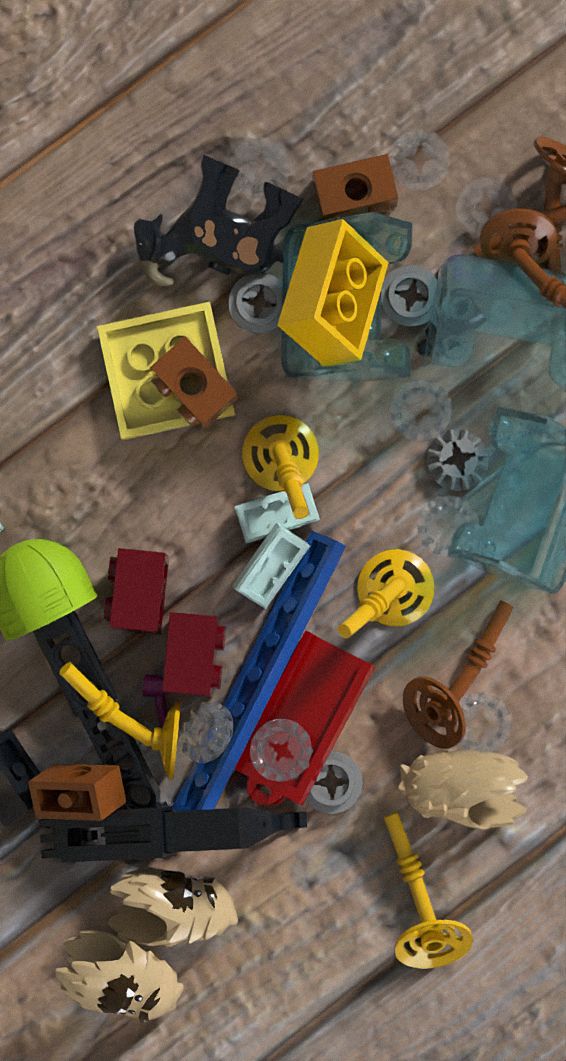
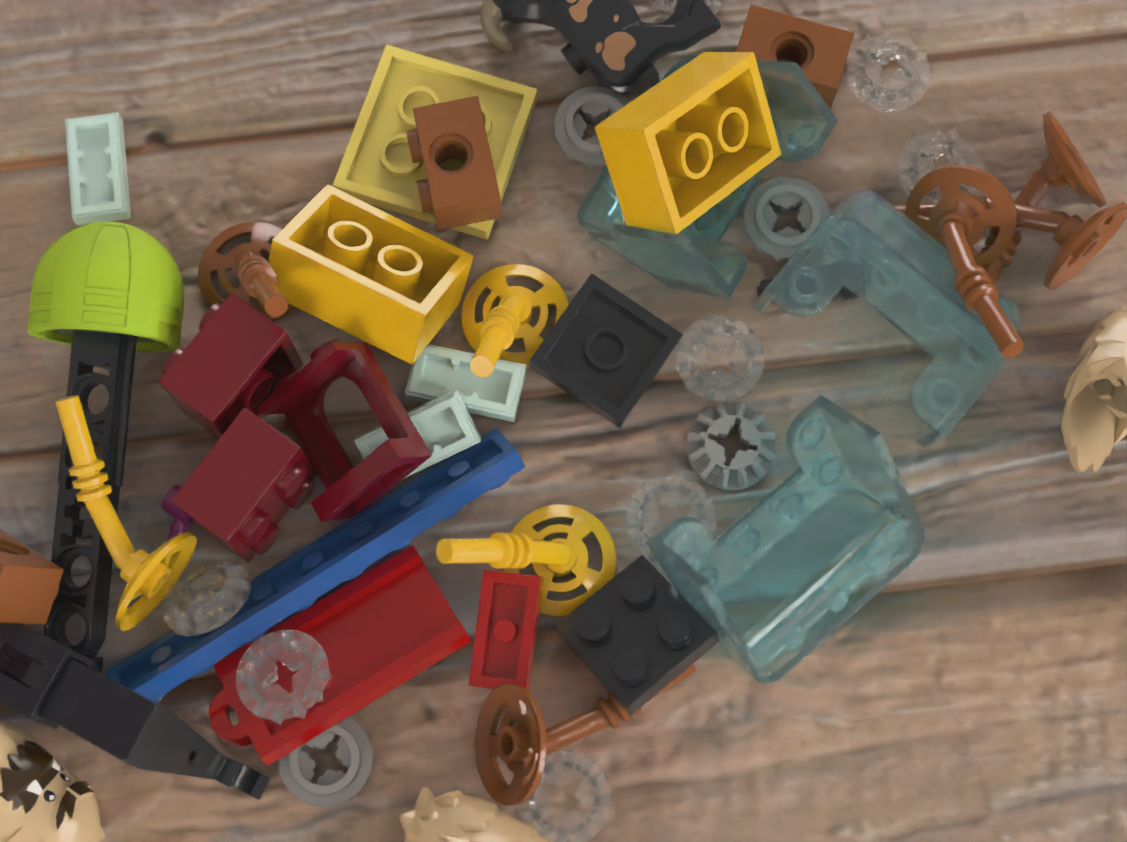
camera: 30 degrees right, 10 degrees down
(122, 523) = (248, 266): none -> dark orange dish
(182, 484) = (369, 273): none -> yellow brick
(190, 587) = (302, 401): none -> dark red panel
(350, 445) = (605, 350): none -> black plate
(392, 650) = (505, 629): none -> red plate
(468, 606) = (637, 634): none -> black plate

